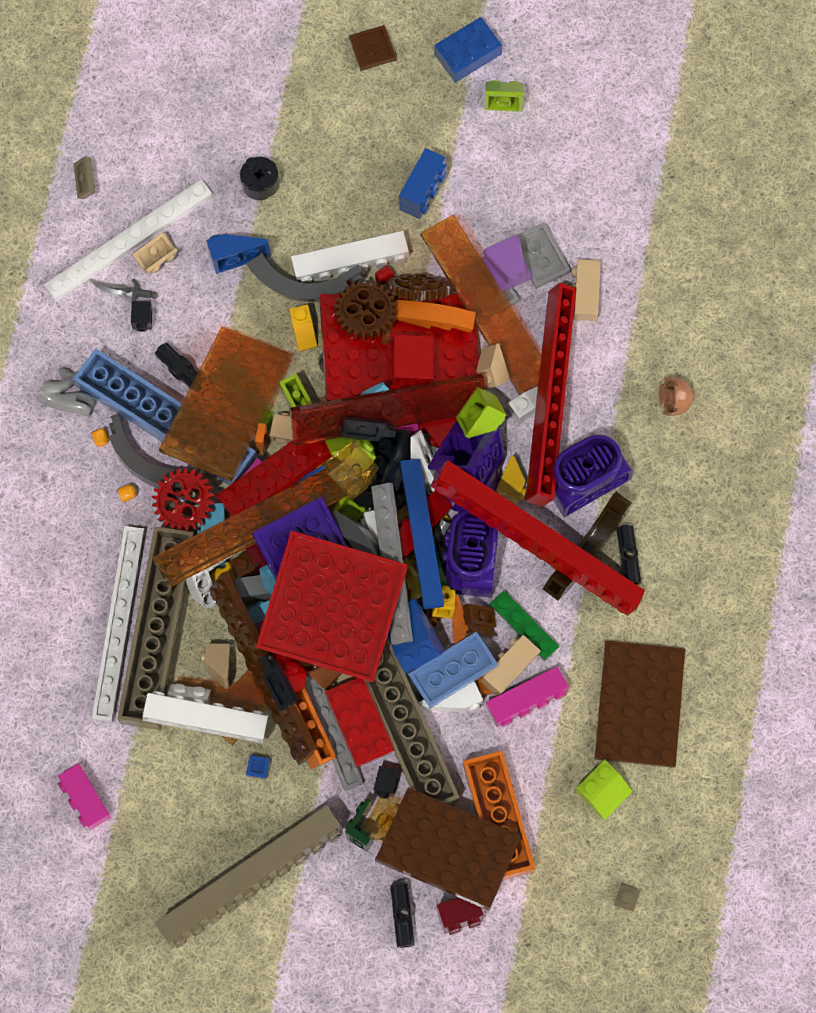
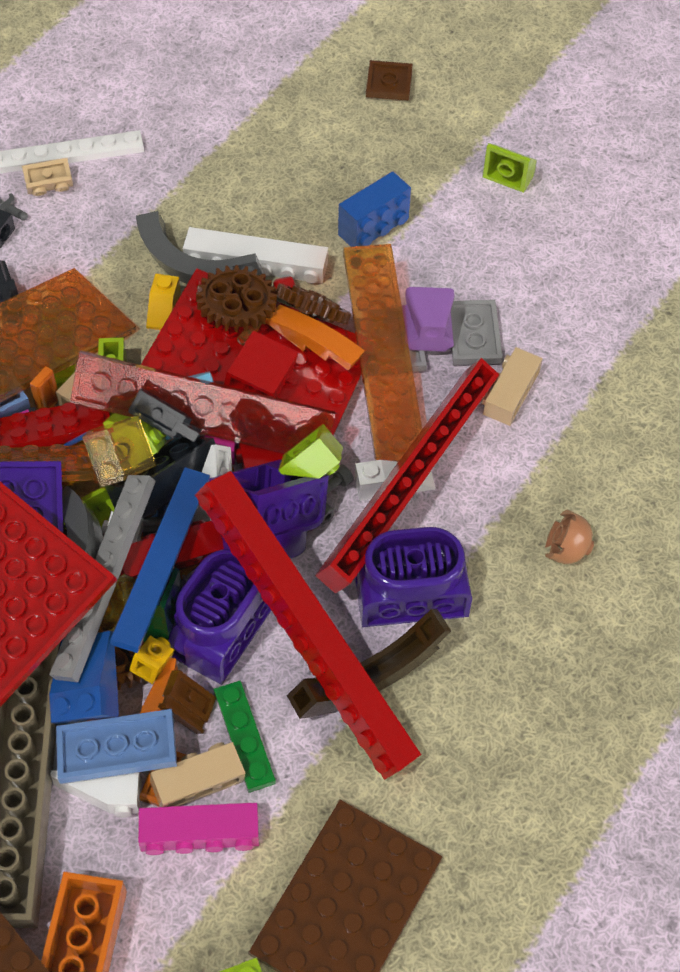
camera: 20 degrees right, 15 degrees down
(84, 178) = (22, 83): dark tan plate -> none
(235, 251) = (126, 196): blue slope -> none
(260, 168) = (200, 148): black brick -> none
(468, 49) = (491, 113): blue brick -> none
(492, 366) = (355, 421): tan slope -> none
(512, 482) = (313, 554): yellow slope -> none
(626, 544) = (424, 690): black piece -> none

